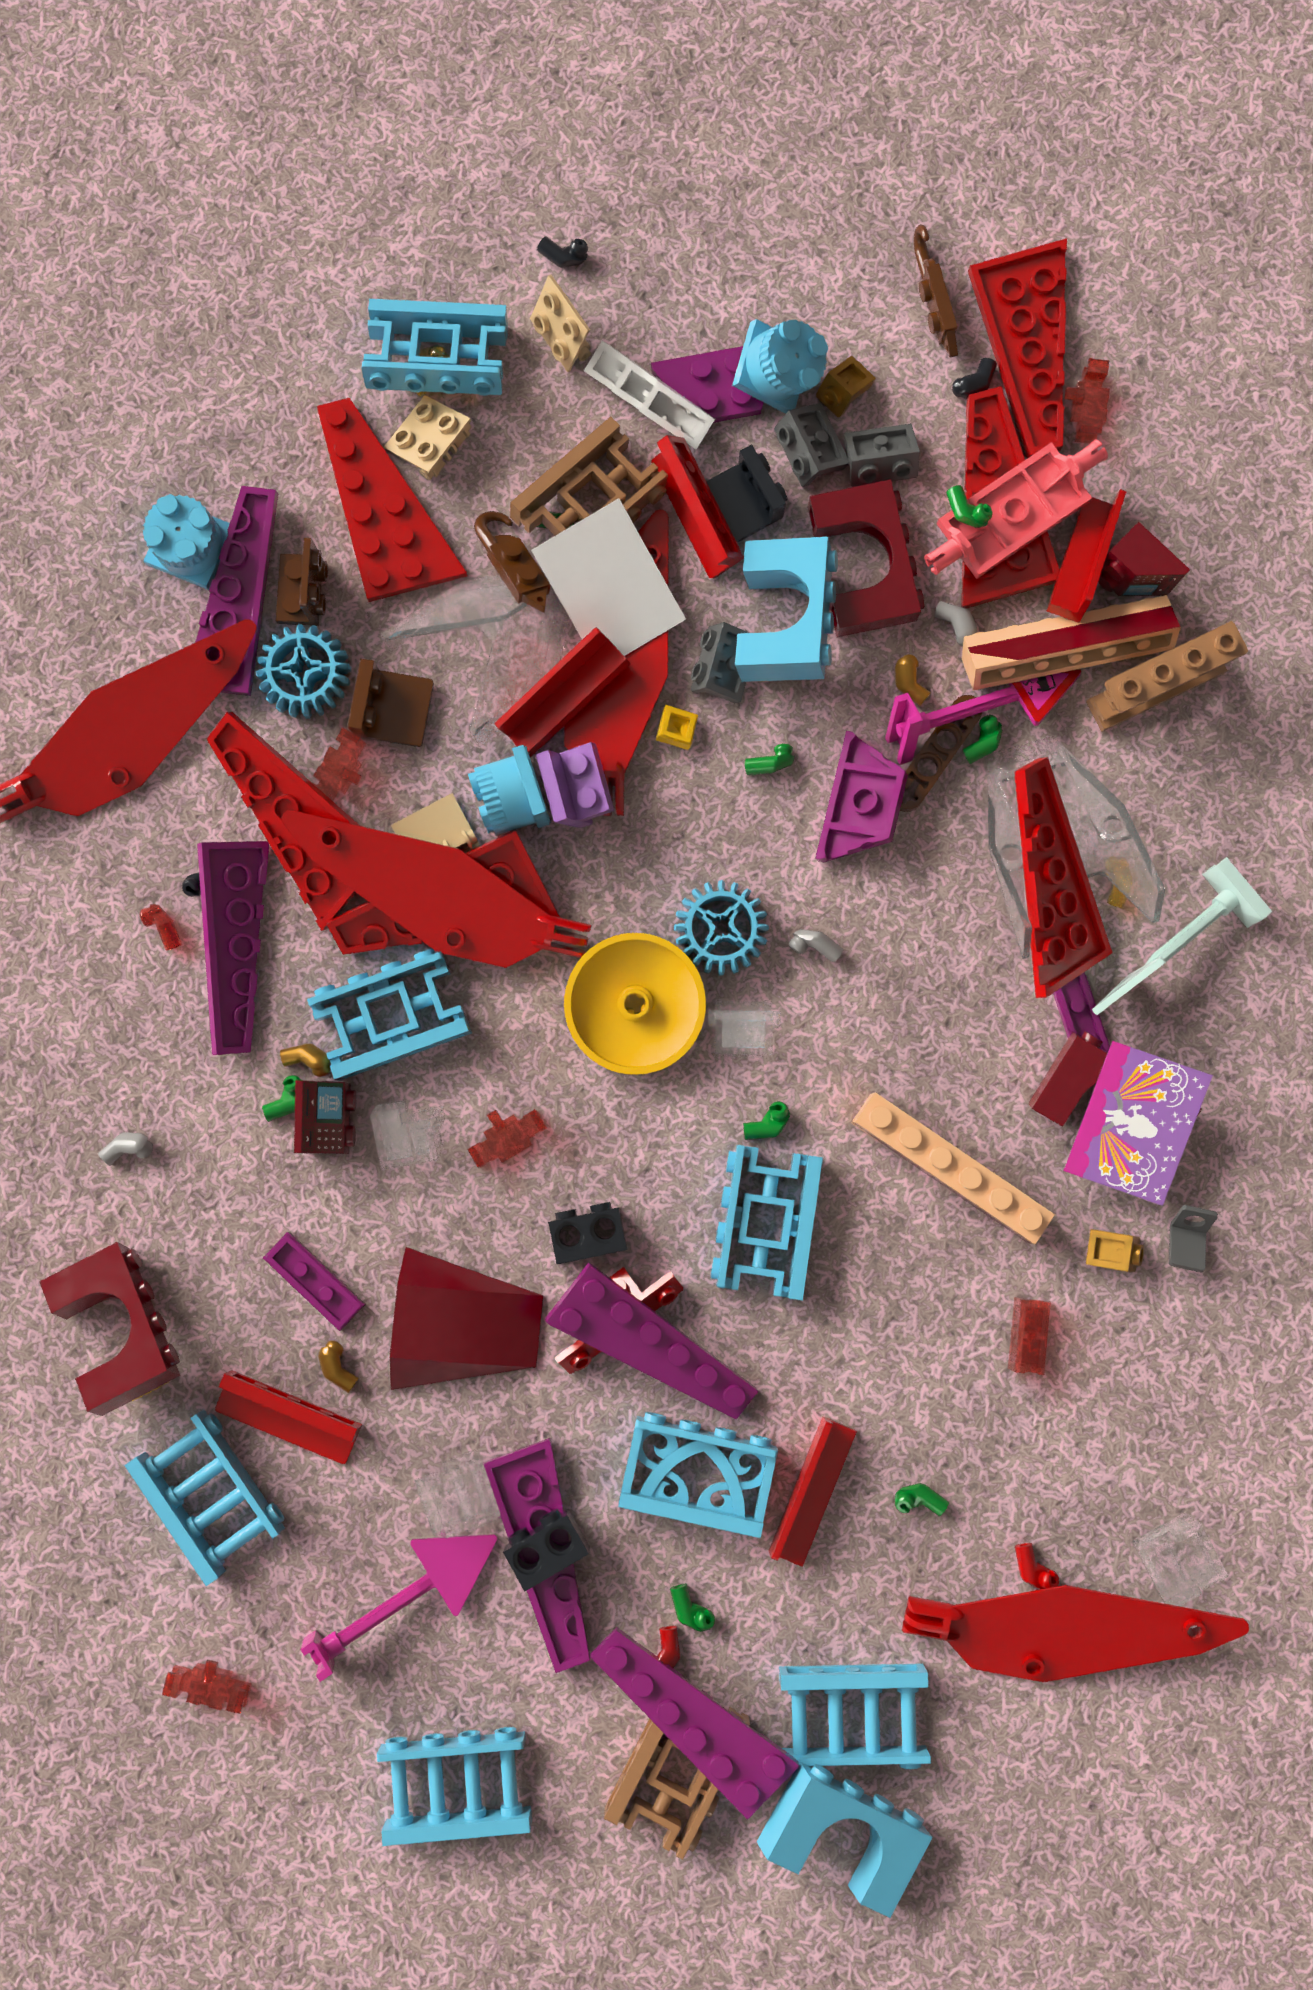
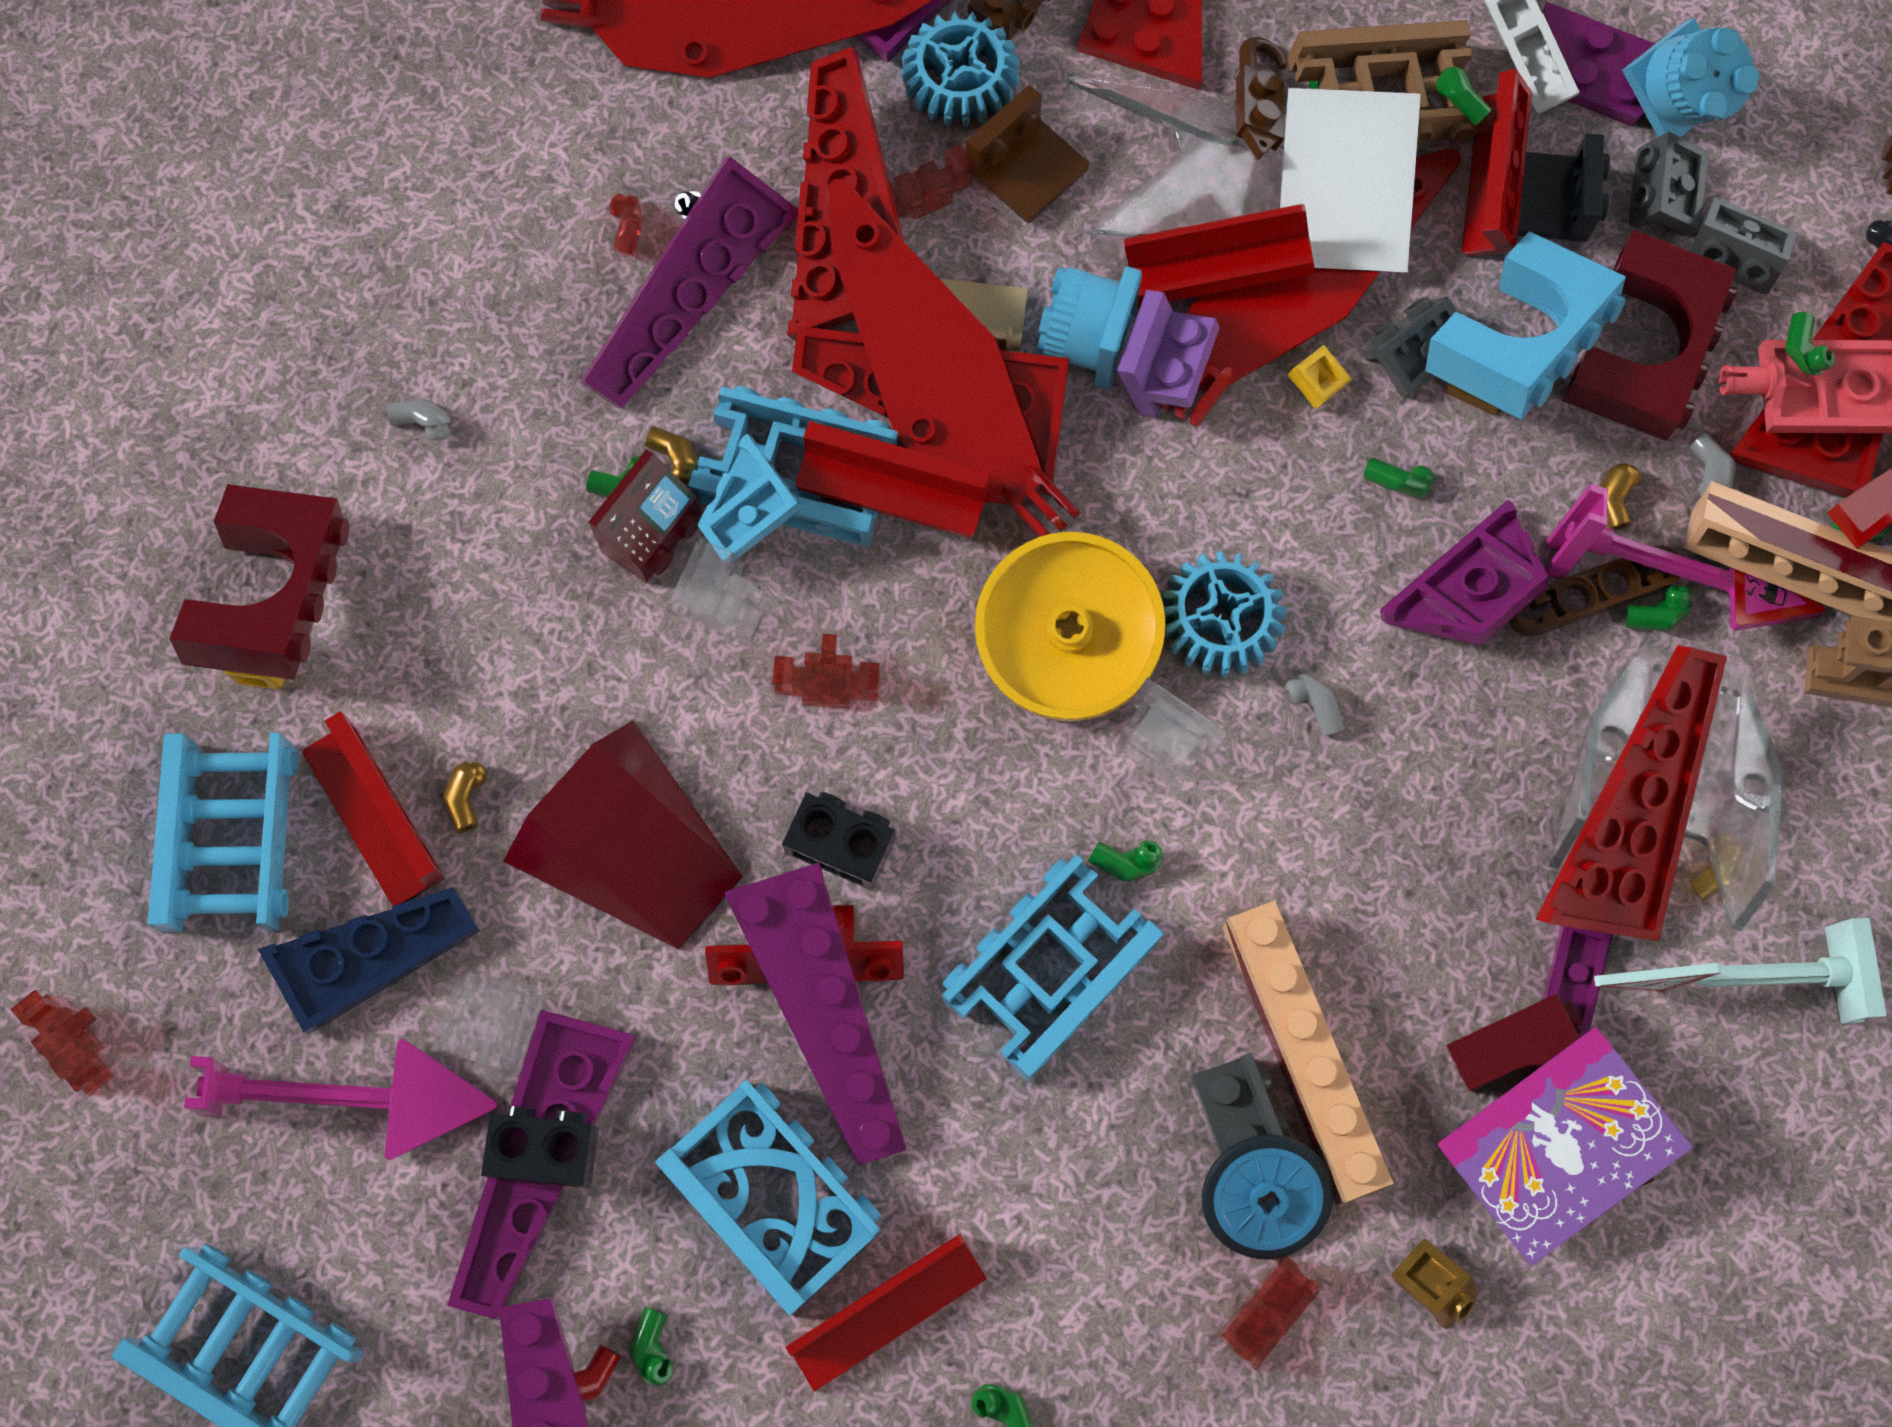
camera: 35 degrees right, 10 degrees down
(314, 1281) = (509, 689): magenta tile -> none
(346, 1514) = (347, 964): none -> dark blue wing
(381, 1065) = (747, 502): none -> medium azure wing
(460, 988) = (892, 480): none -> red panel
(639, 474) = (1458, 89): none -> green arm
(844, 385) = (1746, 148): pearl gold bracket -> none
(936, 1229) = (1238, 1102): none -> dark grey bracket
(966, 1267) = (1250, 1172): none -> dark azure wheel
(1188, 1238) = (1536, 1335): dark grey bracket -> none

